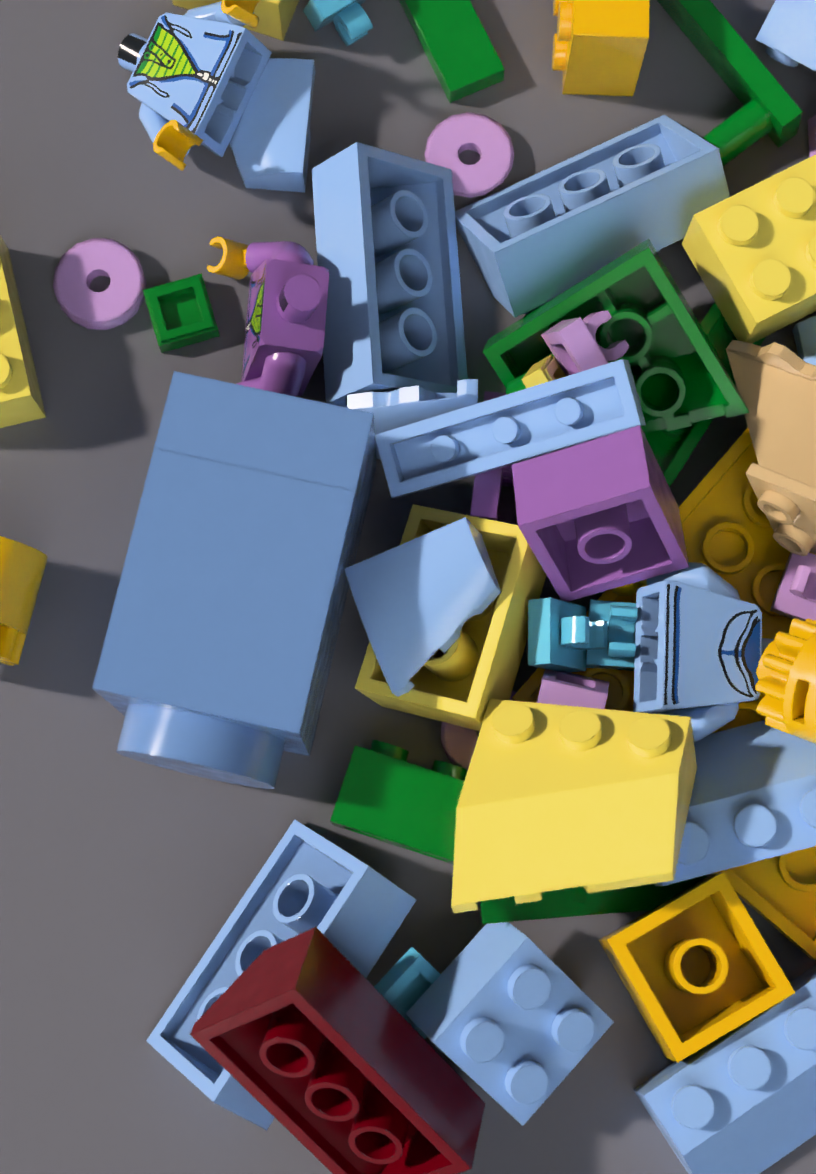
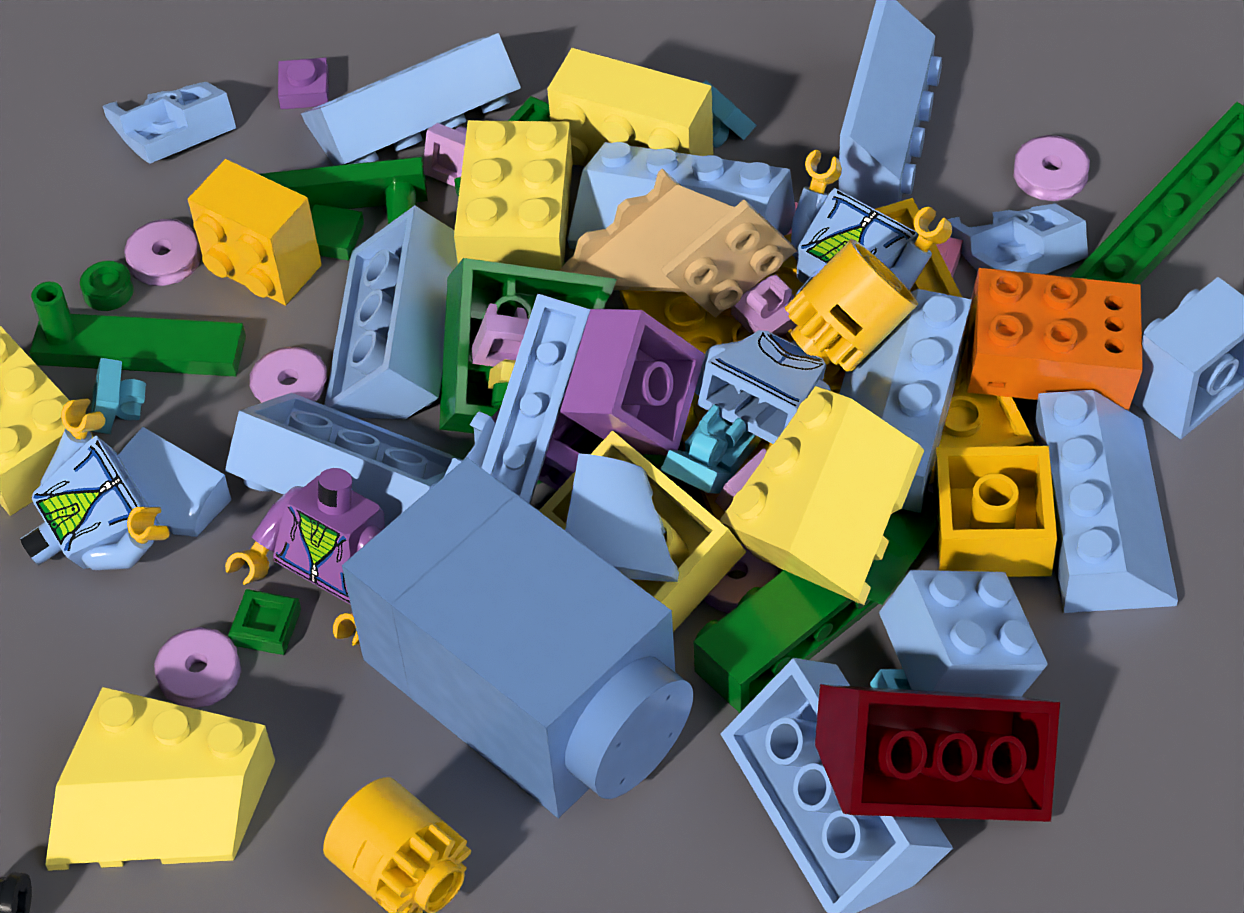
camera: 55 degrees left, 25 degrees down
(675, 80) = (336, 230): none -> green tile

